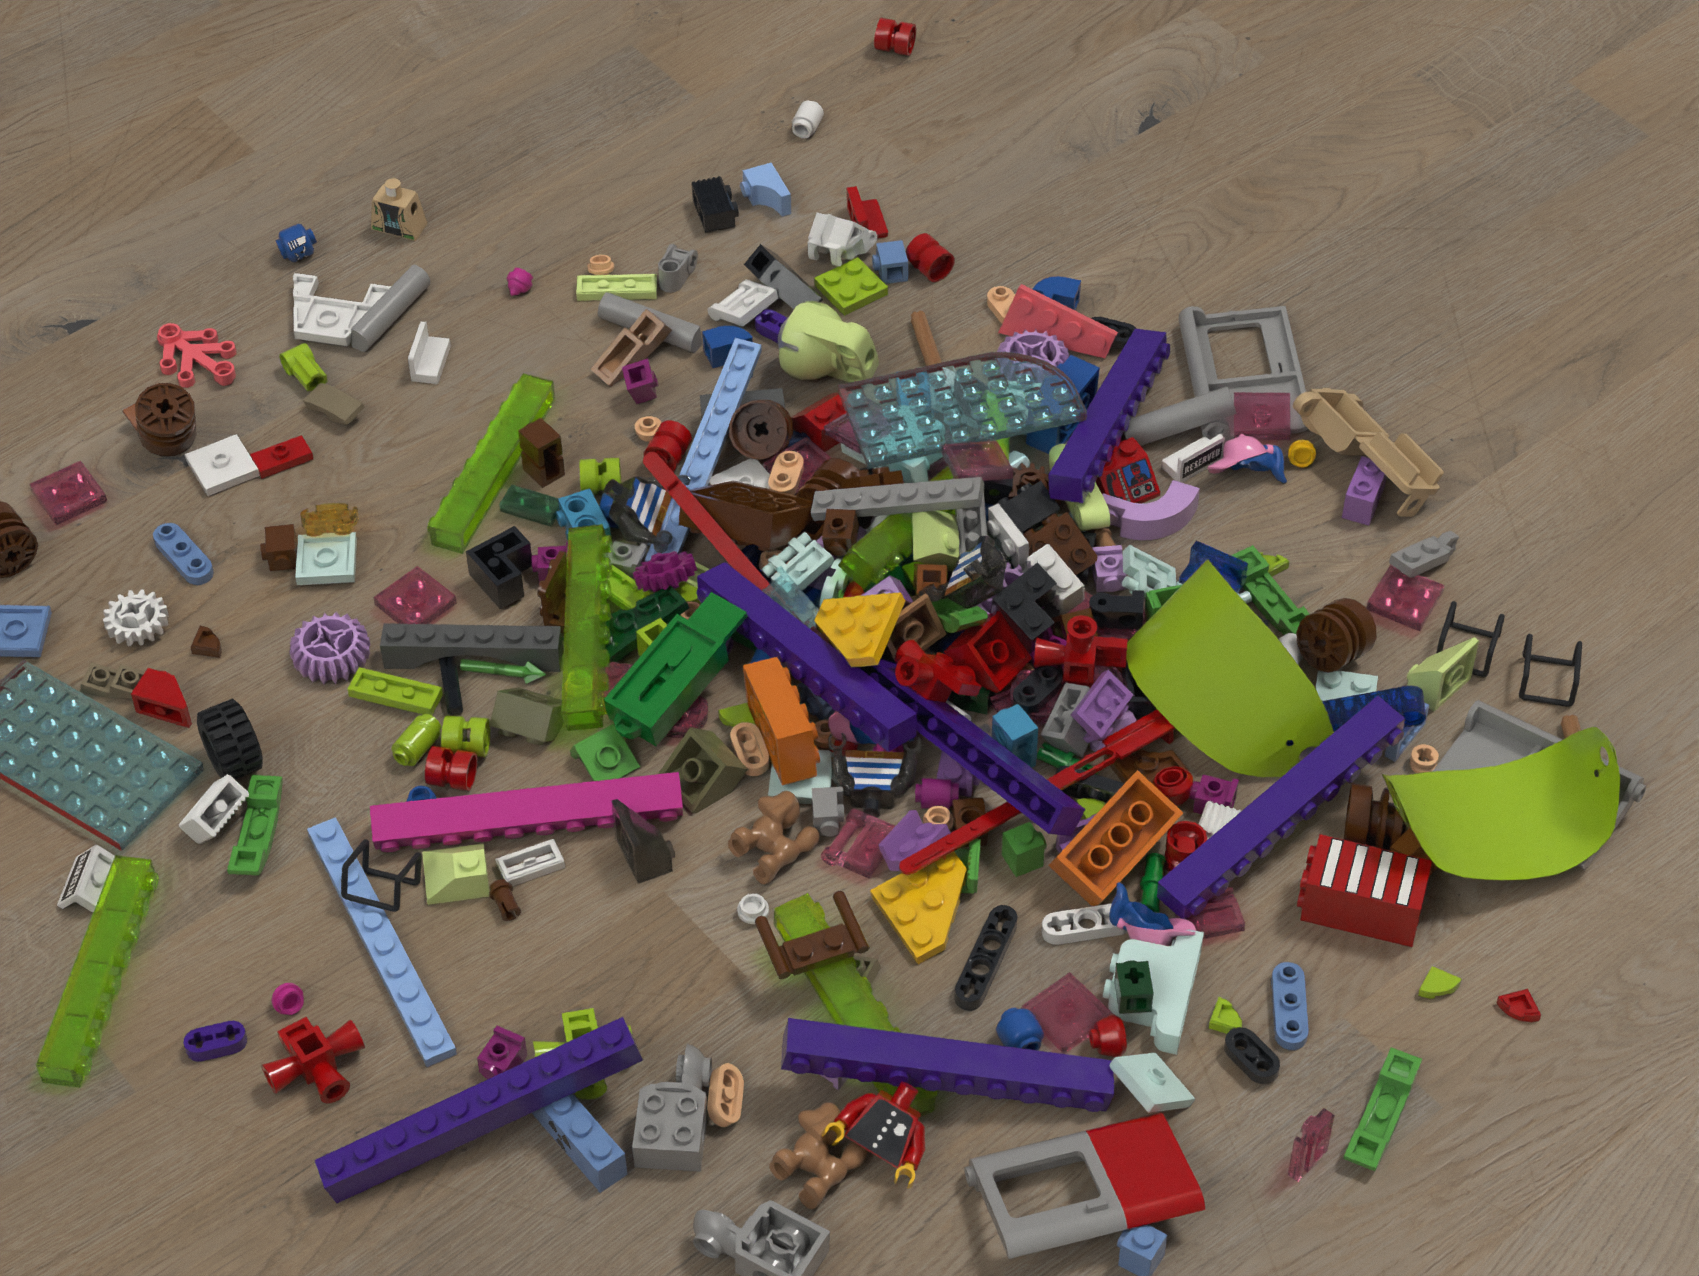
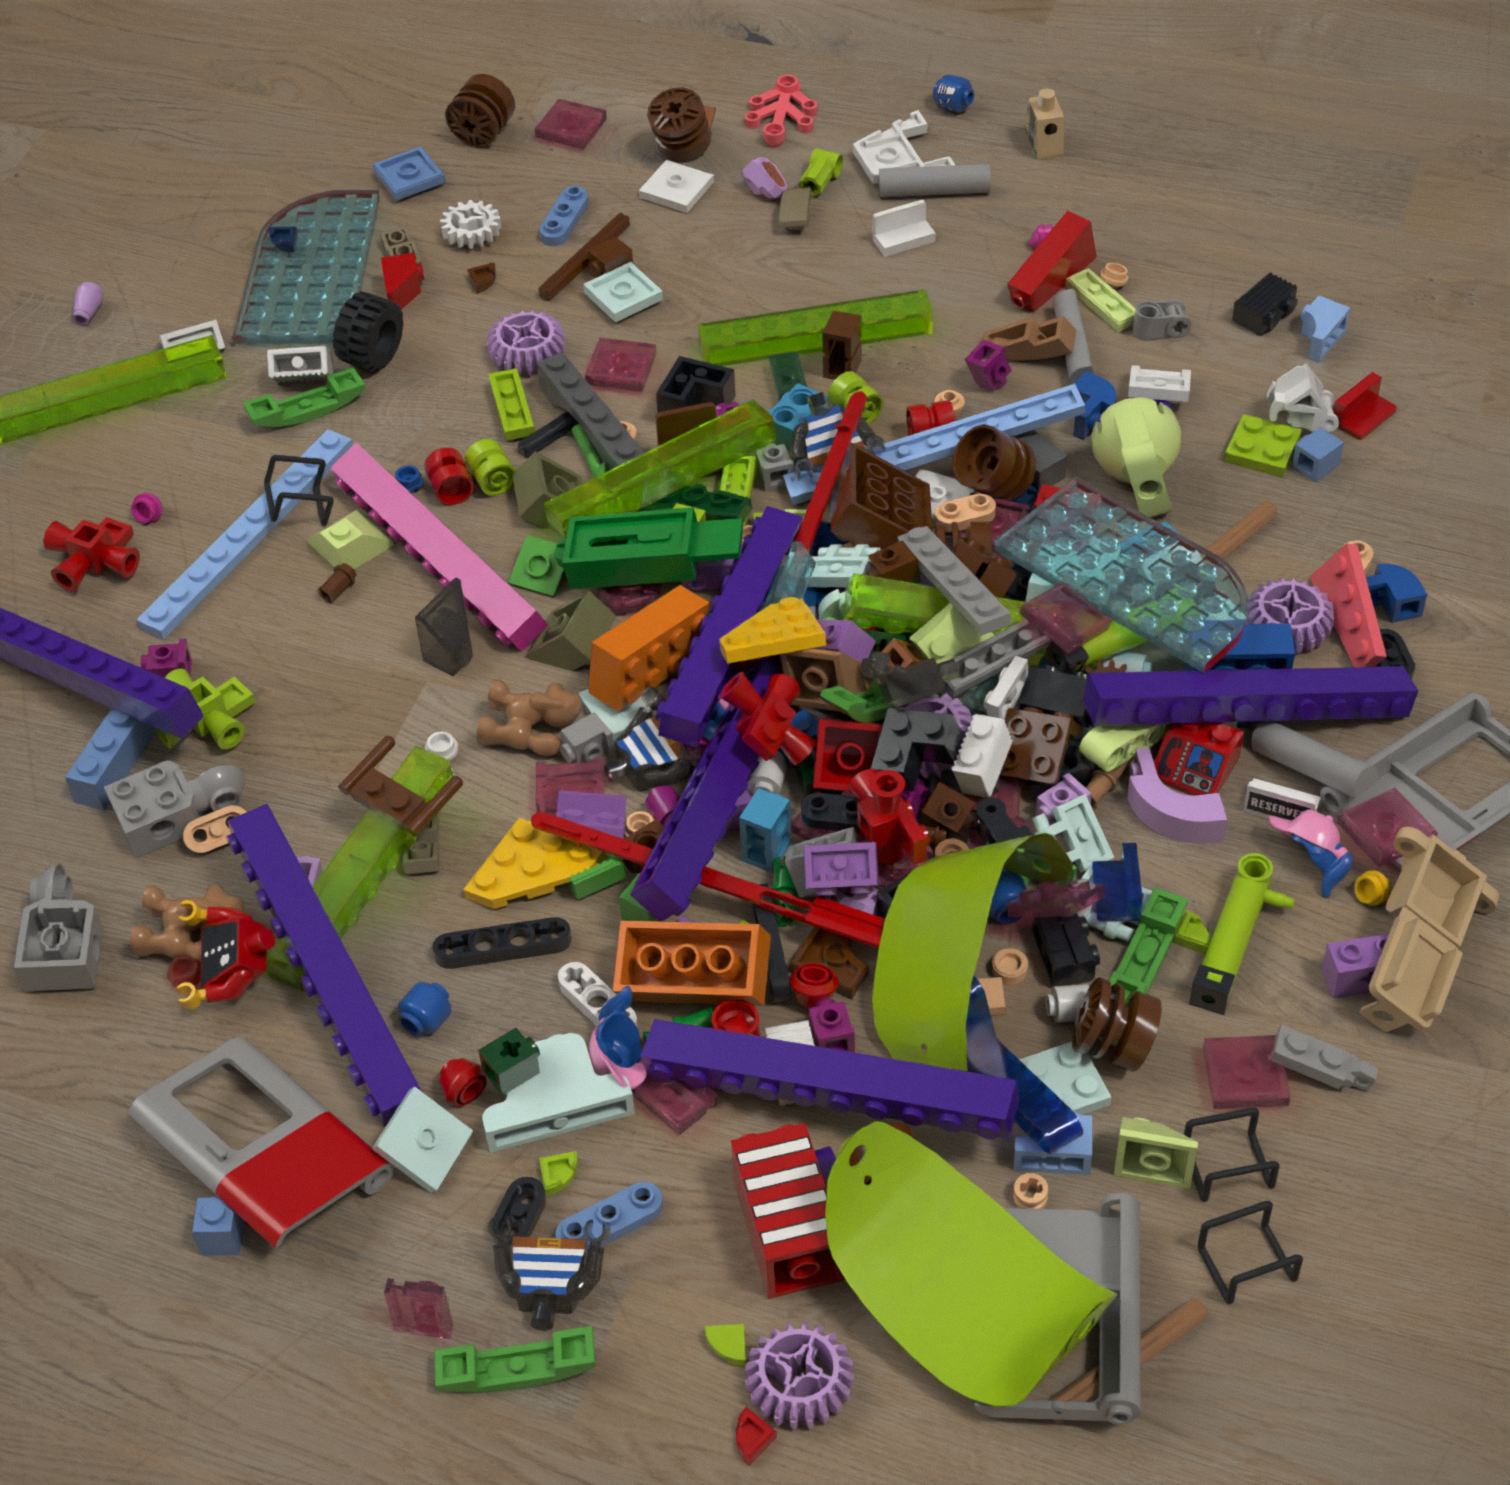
camera: 60 degrees right, 0 degrees up
(25, 752) = (284, 237): none -> dark blue tile
(215, 1041) = (87, 487): dark purple beam -> none
(252, 564) = (580, 259): none -> reddish brown axle
(280, 405) = (764, 178): none -> lavender rock
(282, 456) = (715, 212): red plate -> none
(329, 518) = (661, 270): clear yellow plate -> none
(416, 740) = (463, 437): lime head -> none
(532, 866) = (388, 583): white tile -> none
(562, 288) = (1060, 255): none -> red slope
(664, 571) = (766, 488): magenta gear -> none
(780, 276) = (1211, 389): slope -> none
(807, 119) = (1446, 307): white brick -> none
(865, 1172) = (181, 966): none -> clear red plate
(929, 257) = (1349, 475): red wheel -> none
(1066, 1012) = (471, 1028): clear pink plate -> none
(1321, 1056) = (548, 1272): none -> torso
(1324, 573) = (1232, 934): none -> lime piece
(1494, 962) = (789, 1355): none -> lavender gear

